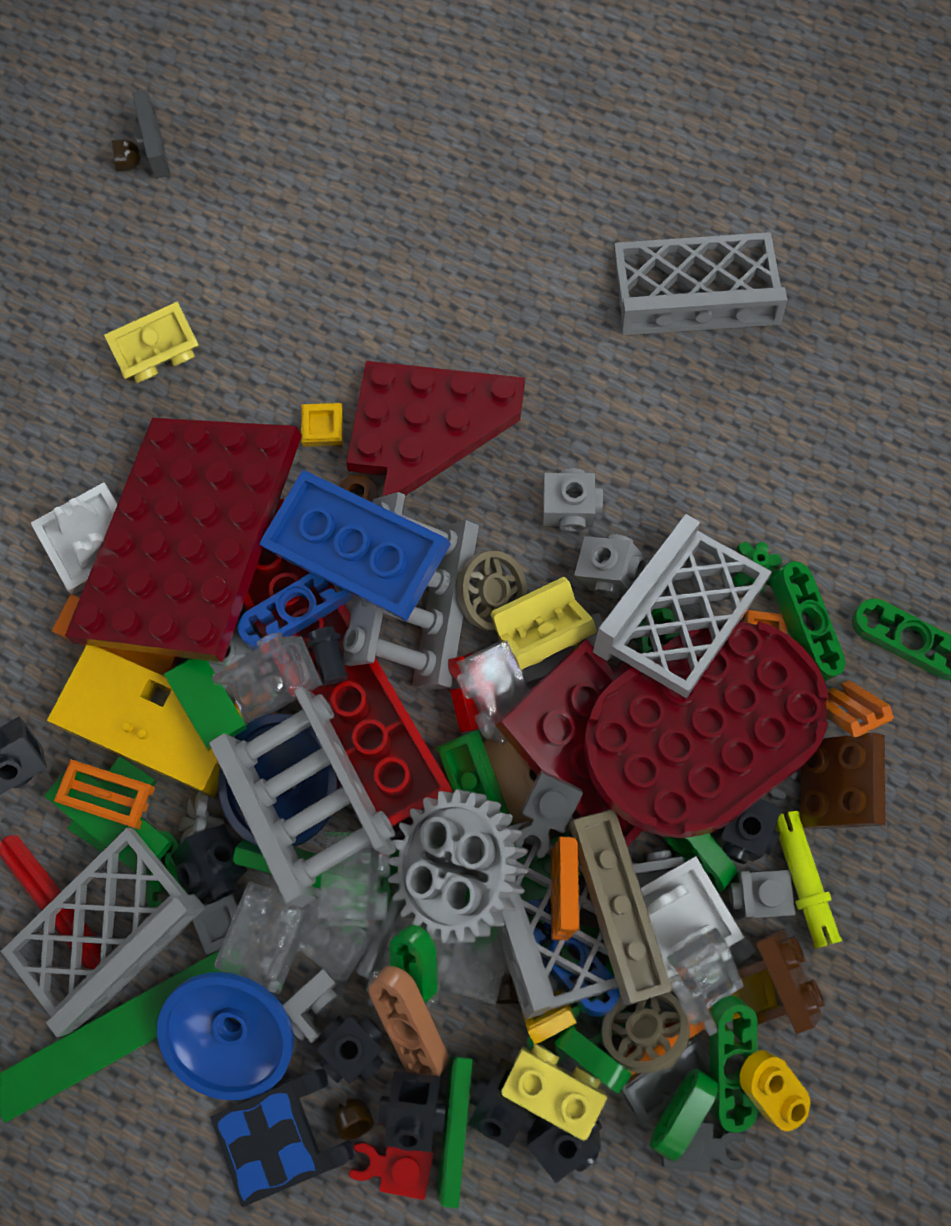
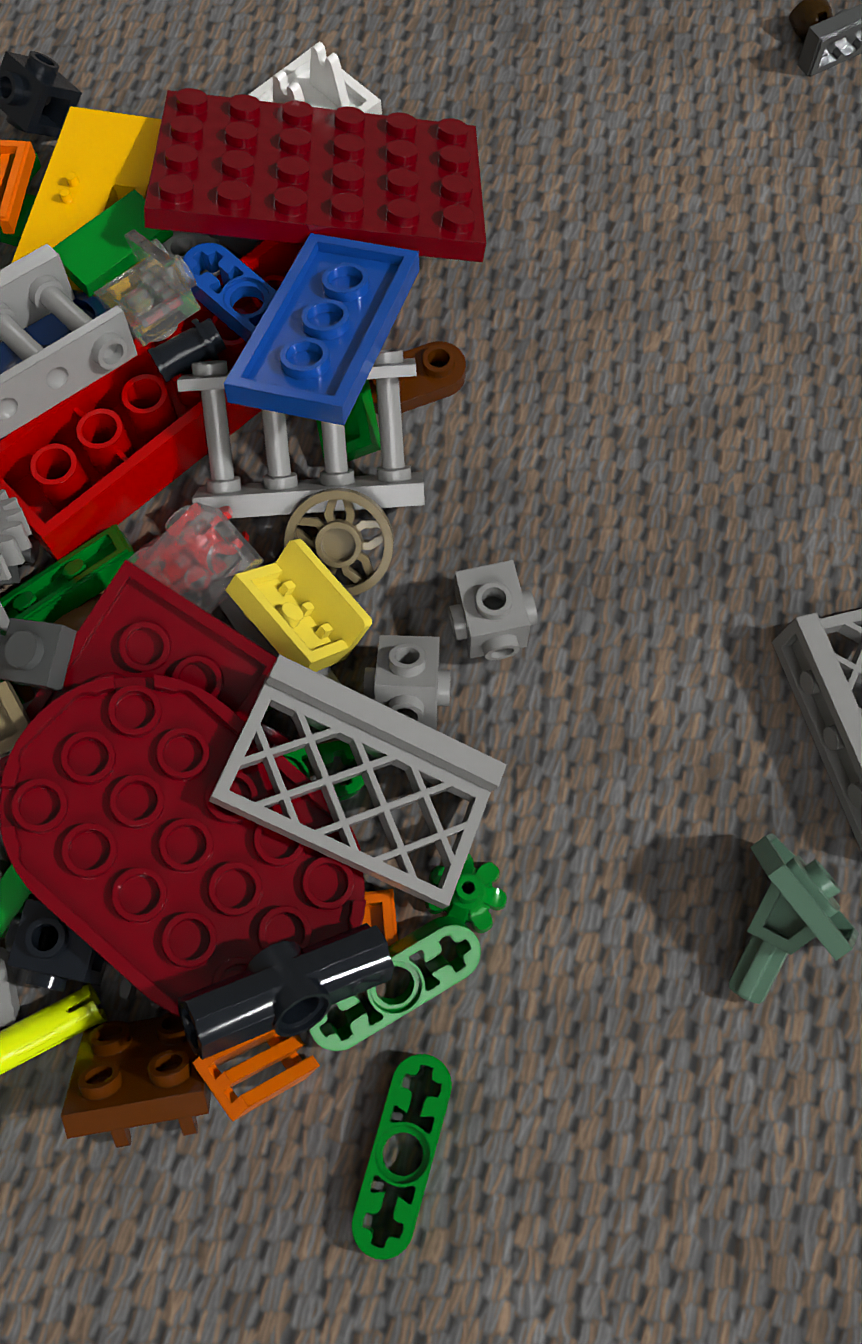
camera: 75 degrees right, 5 degrees down
(152, 342) = (575, 104): light yellow bracket -> none
(322, 424) = (524, 309): yellow tile -> none
(426, 419) = (562, 417): dark red wing -> none
(816, 374) = (791, 914): none -> sand green piece
(820, 671) = (284, 989): none -> black piece

